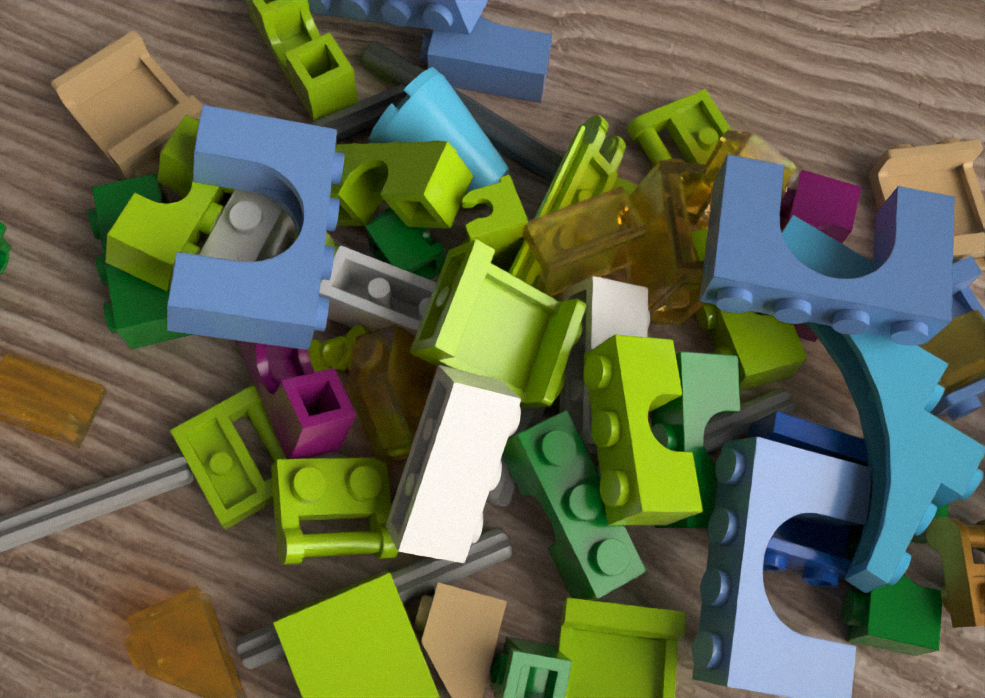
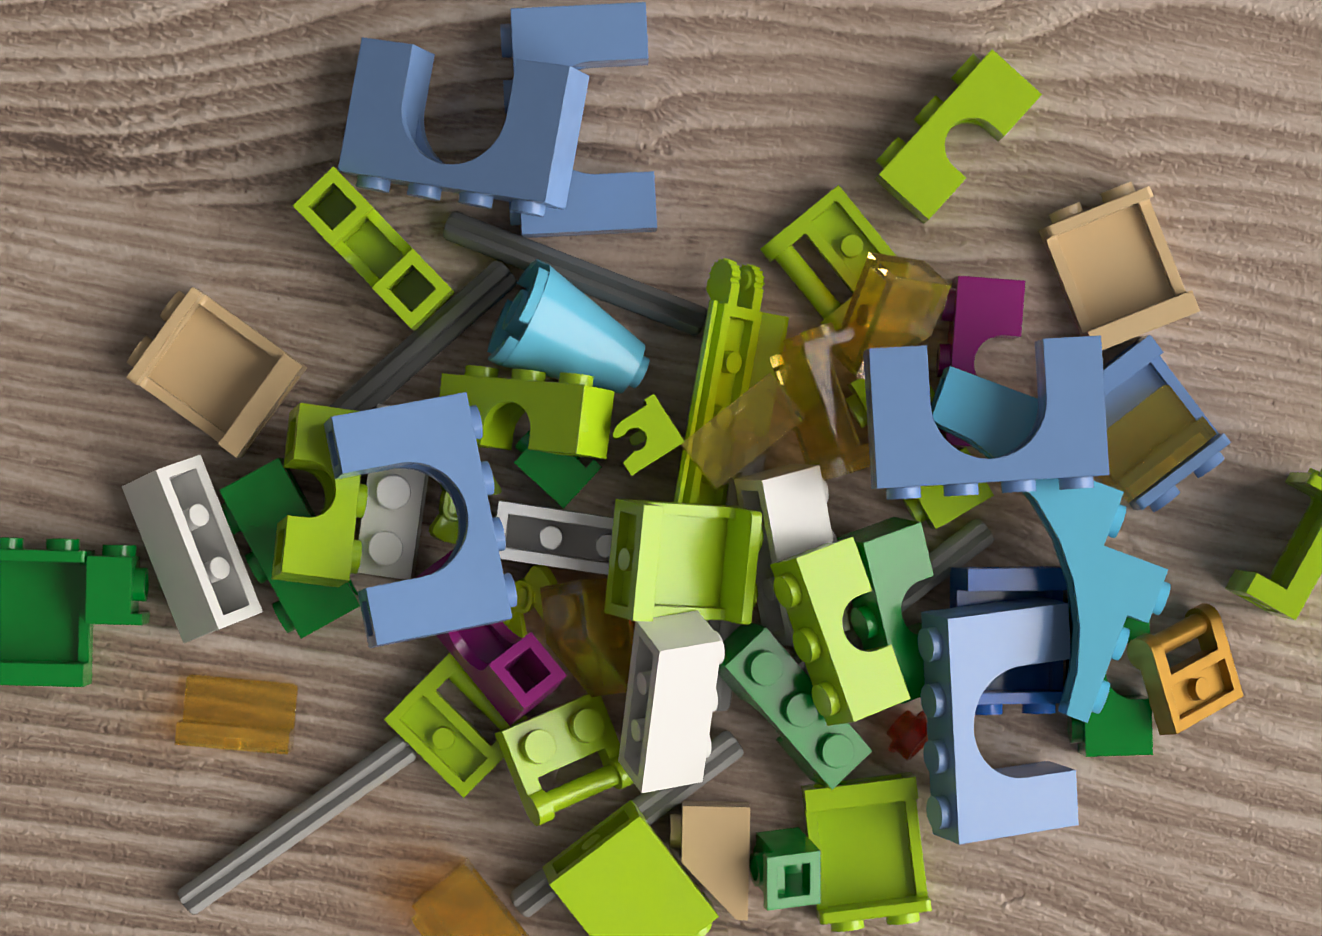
camera: 10 degrees left, 20 degrees up
(50, 235) = (191, 548): none -> white brick
(682, 575) = (908, 734): none -> clear red plate
(839, 57) = (987, 96): none -> lime arch

